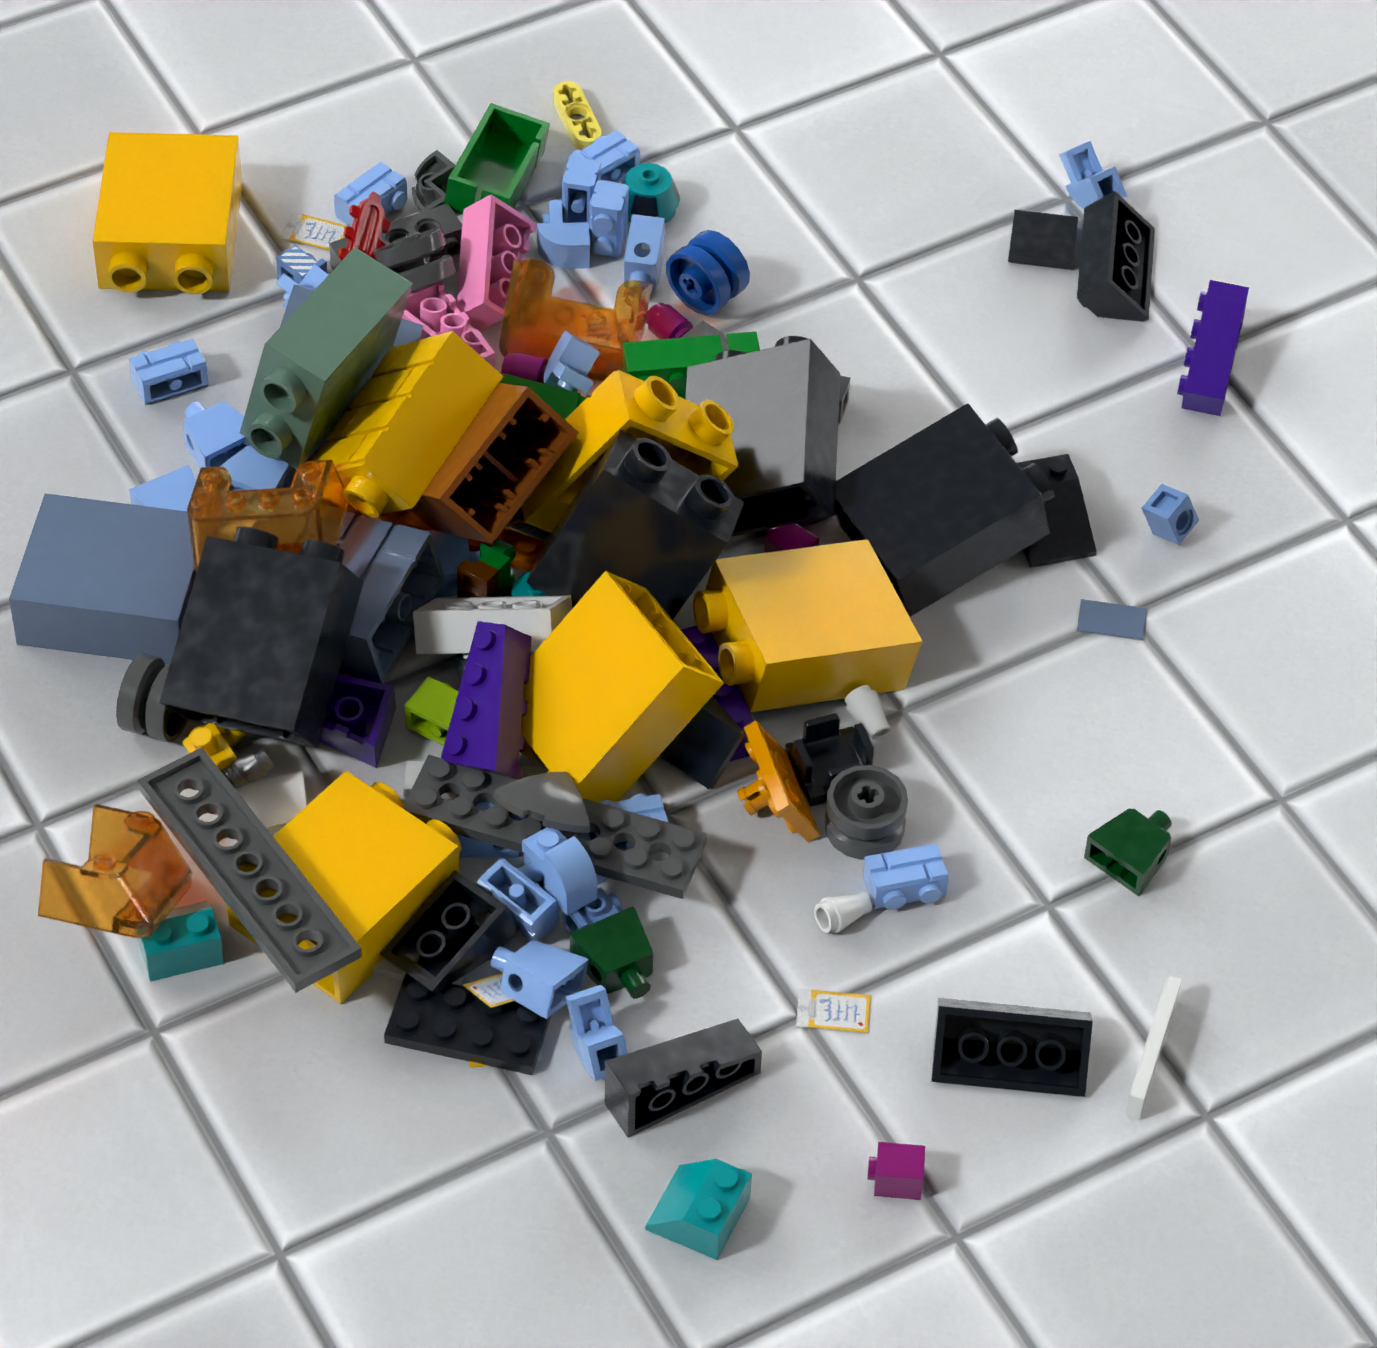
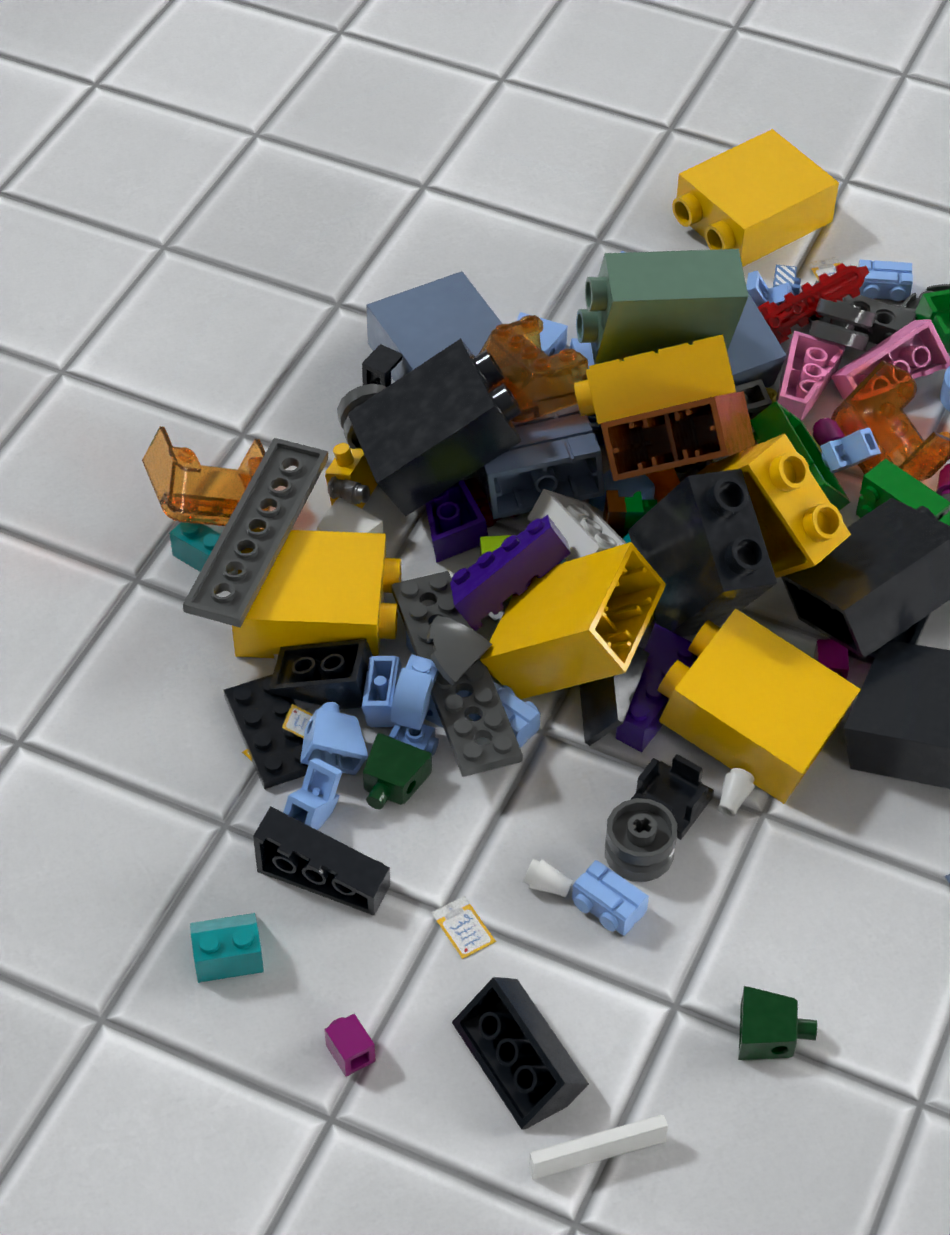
camera: 55 degrees right, 0 degrees up
(104, 653) = (378, 366): none -> black panel
(776, 784) = (613, 772): light orange plate -> none

